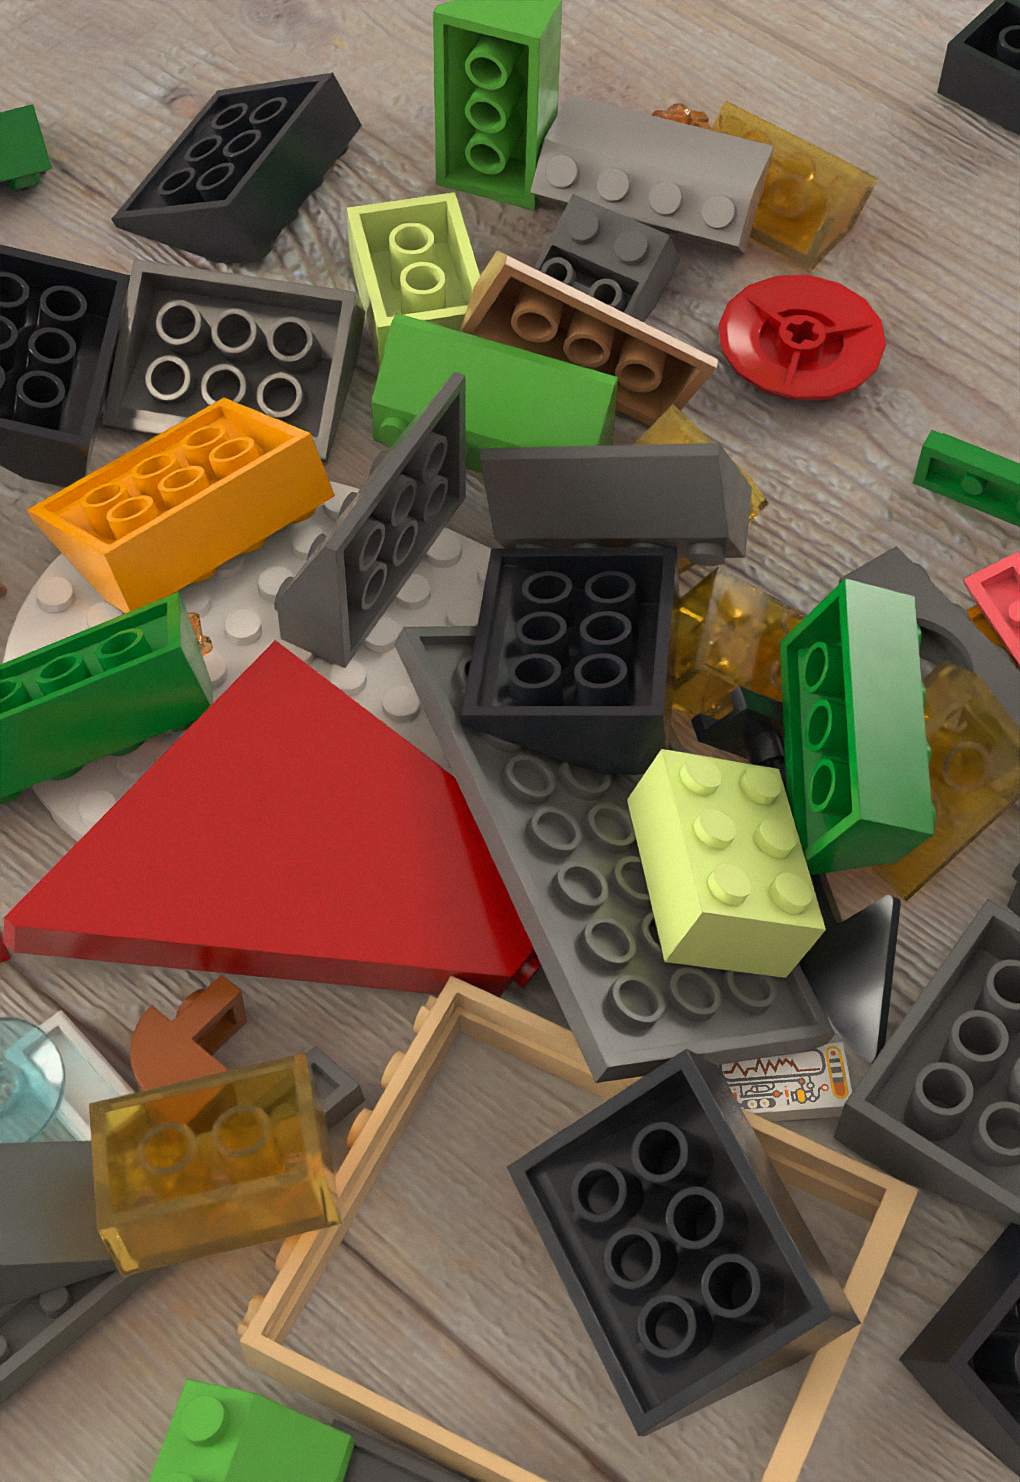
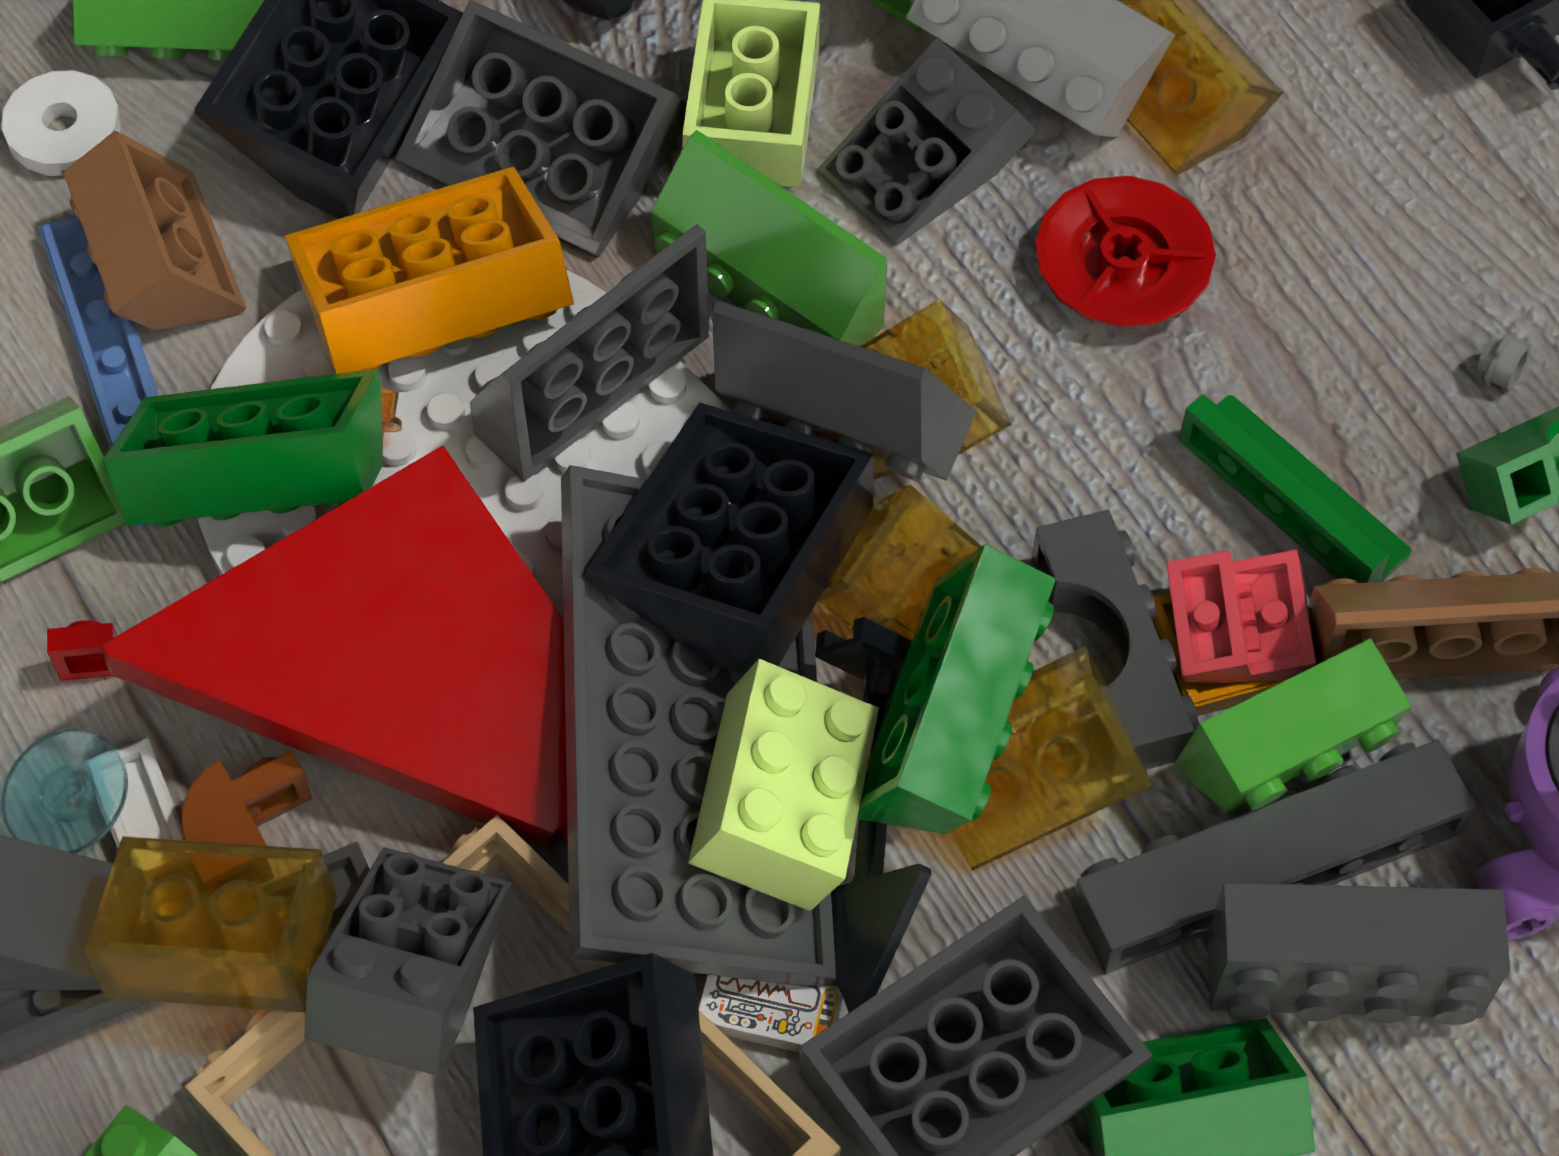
camera: 20 degrees right, 5 degrees up
(425, 1142) = (405, 961): none -> dark grey slope
(555, 320) = (883, 202): medium nougat slope -> none

